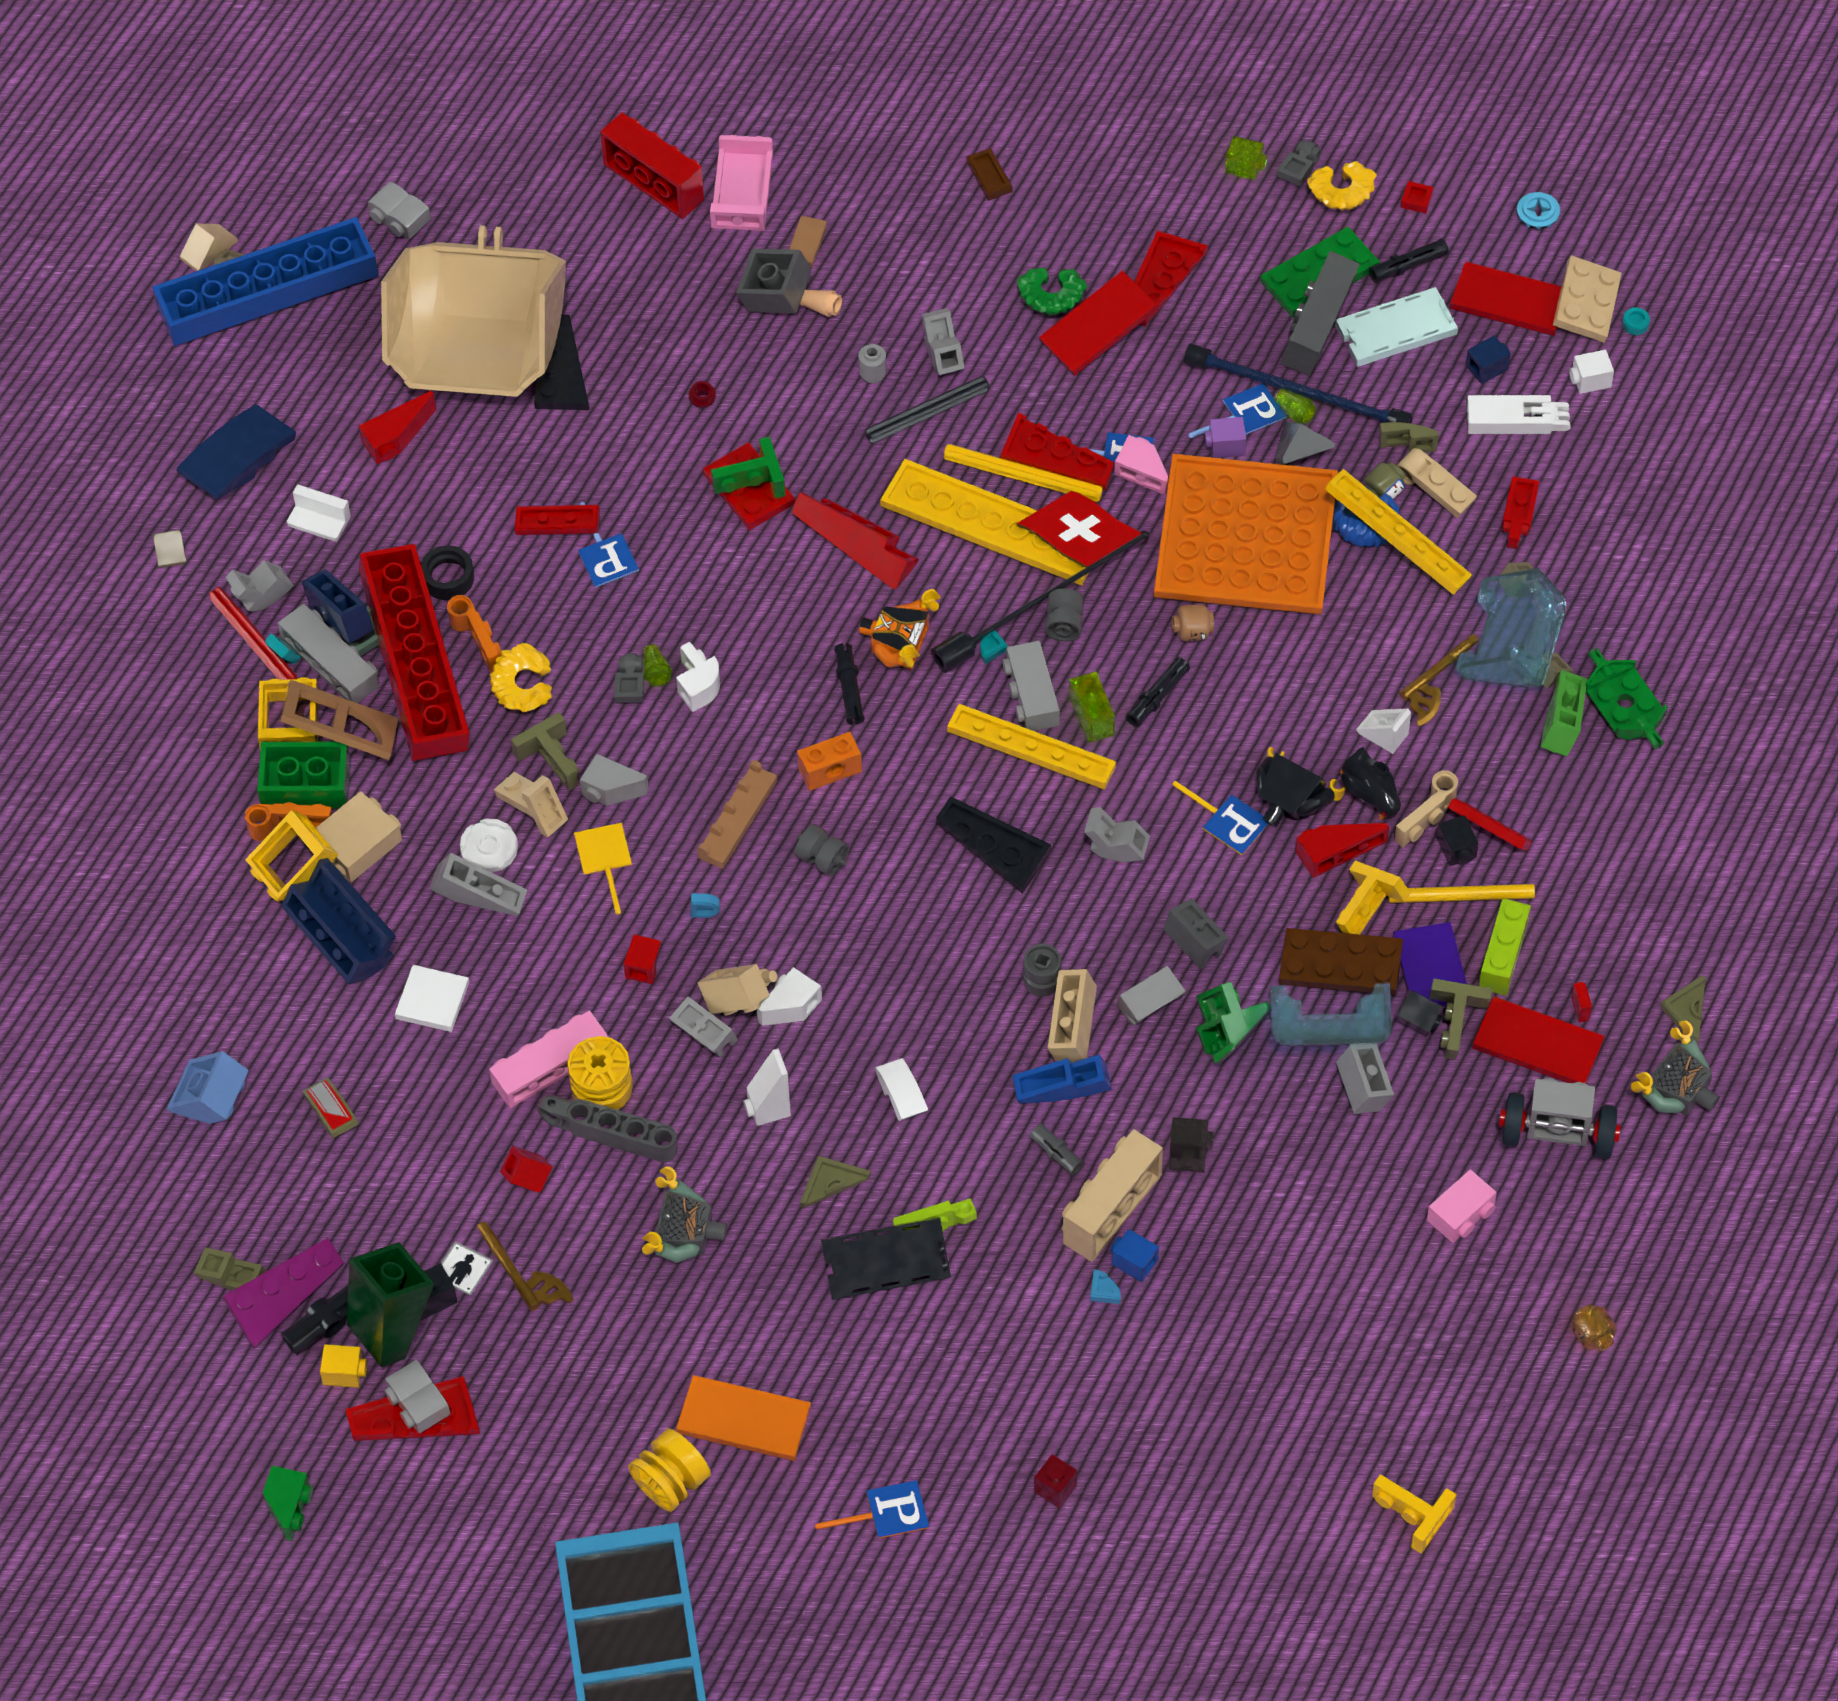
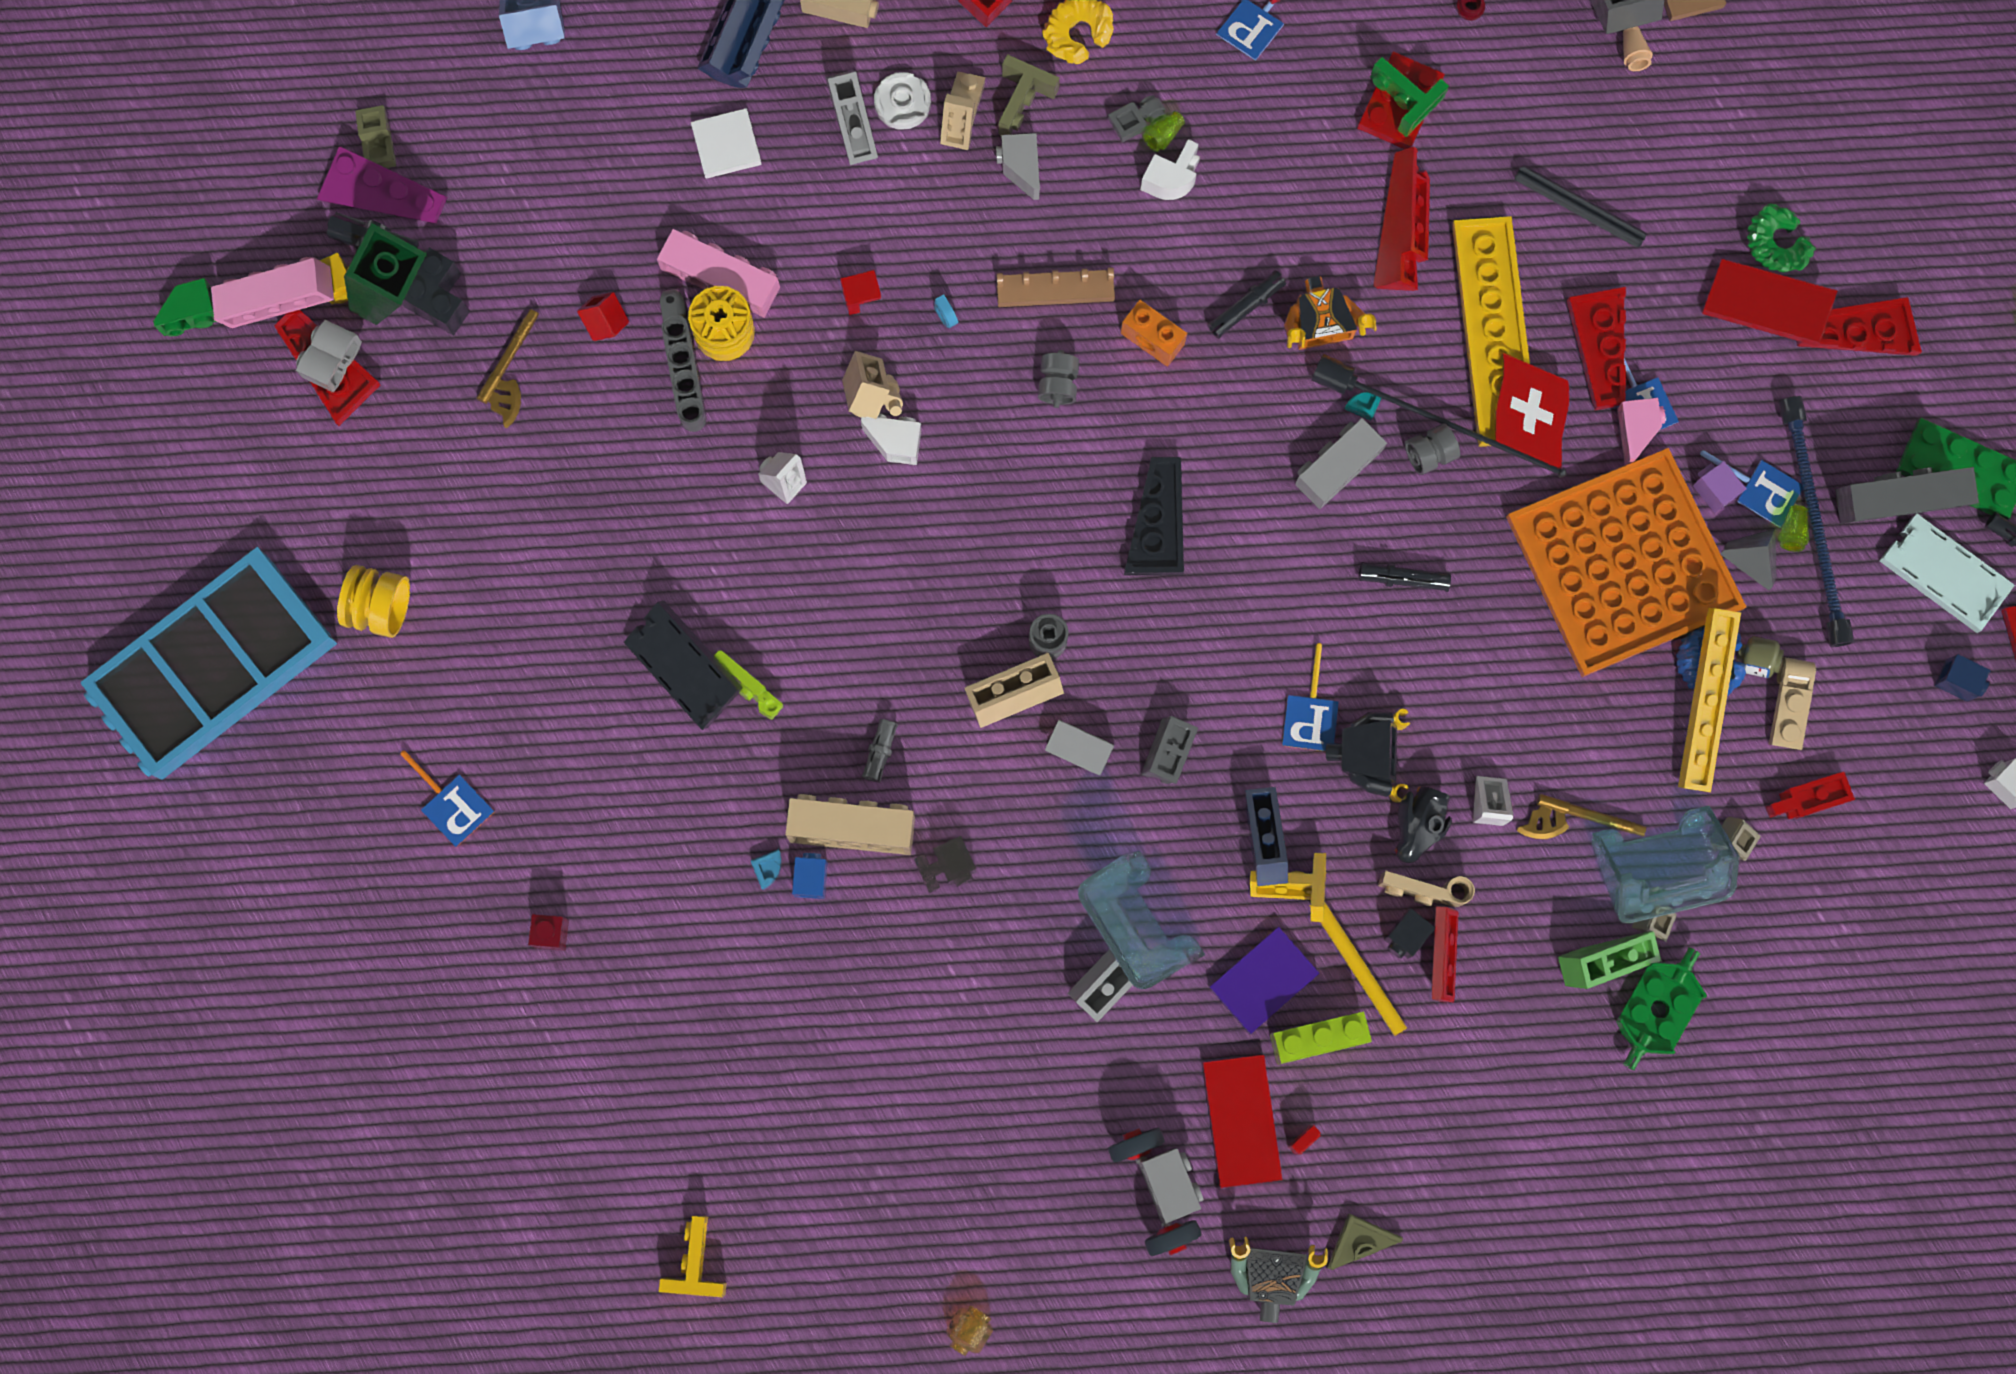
camera: 55 degrees right, 20 degrees up
(325, 1415) = (272, 292): none -> bright pink brick
(330, 1107) = (571, 123): slope -> none
(465, 1267) = (488, 321): sticker -> none
(604, 850) = (955, 197): yellow piece -> none
(683, 1222) = (621, 476): torso -> none
(703, 1026) = (822, 381): light grey hinge -> none
(743, 1418) = (471, 633): orange tile -> none
(831, 1178) = (741, 572): olive tile -> none
(872, 363) = (1595, 130): light grey brick -> none
(902, 1089) = (860, 583): white slope -> none
(941, 342) = (1656, 177): light grey brick -> none
(989, 174) = (1874, 114): reddish brown tile -> none
(1021, 472) = (1566, 328): yellow axle -> none
(1031, 746) = (1278, 498): yellow plate -> none
(1062, 1080) = (950, 717): blue slope -> none
(1092, 706) = (1347, 528): clear neon green brick -> none
(1114, 840) = (1223, 625): light grey brick -> none
(1193, 622) = (1497, 567): medium nougat head -> none
(1225, 1022) = (1086, 832): green piece -> none
(1315, 891) = (1266, 836): none -> dark blue brick
(1336, 844) = (1335, 823): red slope -> none
(1340, 960) = (1218, 896): reddish brown plate -> none
(1413, 435) = (1831, 659): olive slope -> none
(1419, 1013) = (1201, 997): black brick -> none
(1459, 996) = (1222, 1030): olive bracket -> none
(1462, 1206) = (1025, 1143): bright pink brick -> none
(1506, 414) = (1913, 726): white hinge -> none

